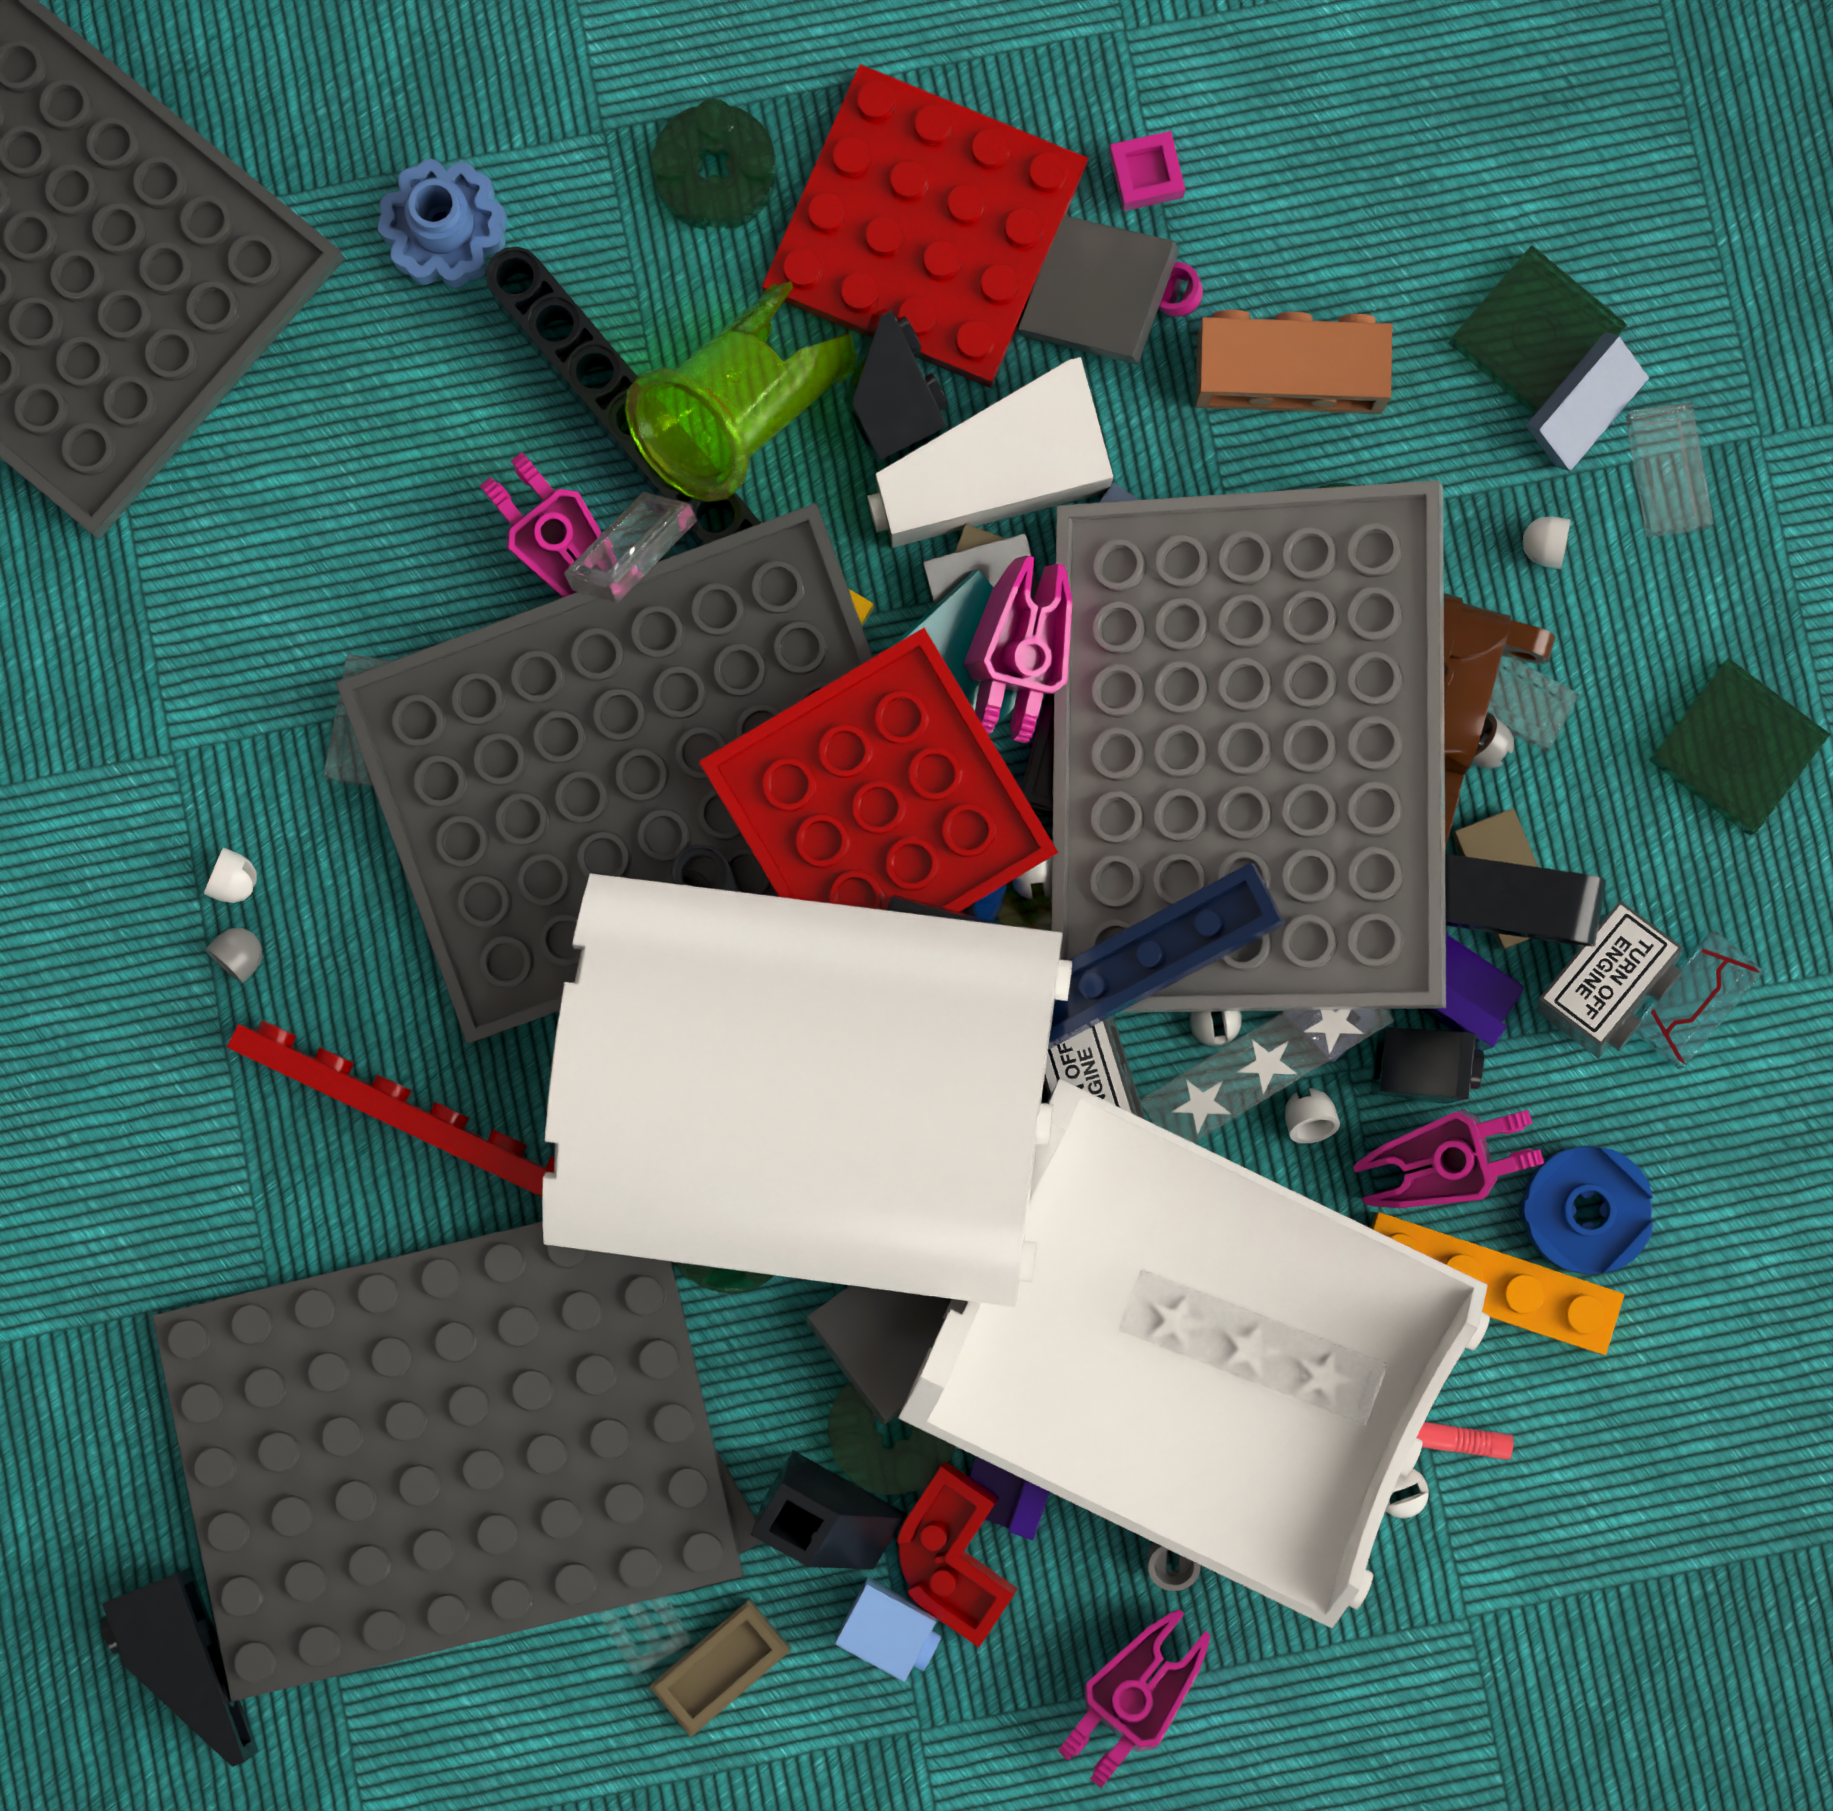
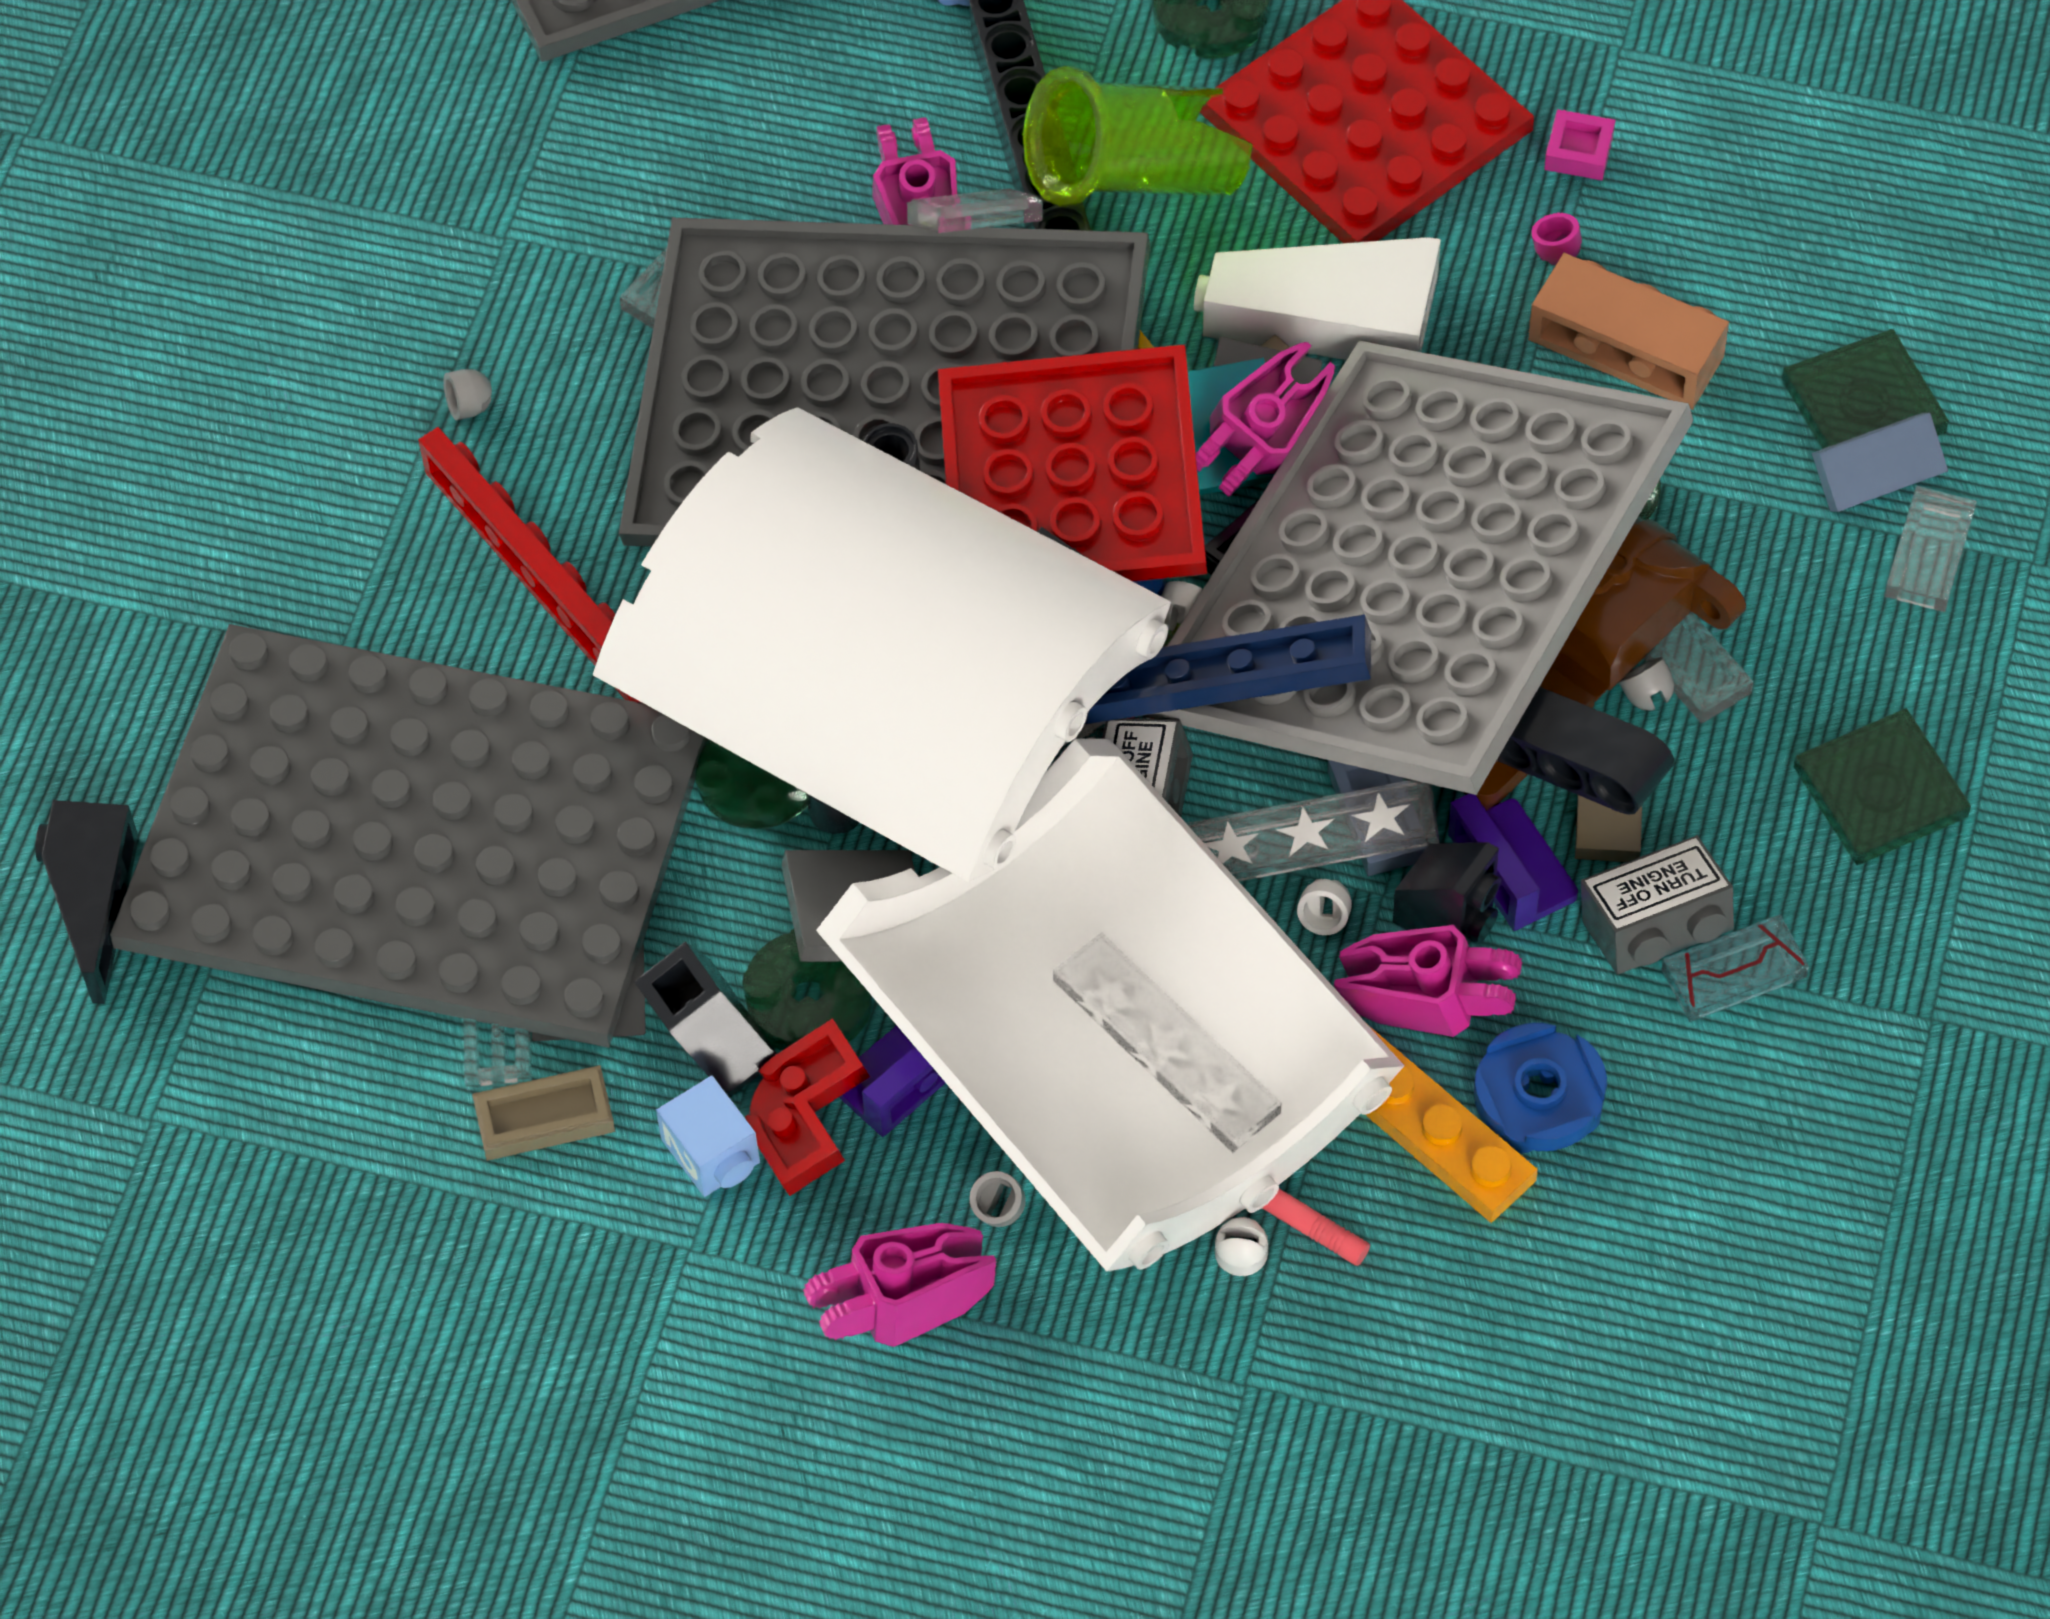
camera: 30 degrees right, 25 degrees down
(231, 878) = (496, 335): white hinge -> none
(888, 391) = (1261, 199): black slope -> none
(1099, 289) = (1488, 209): dark grey tile -> none
(1202, 1027) = (1280, 781): white hinge -> none
(1546, 541) = (1789, 555): white hinge -> none

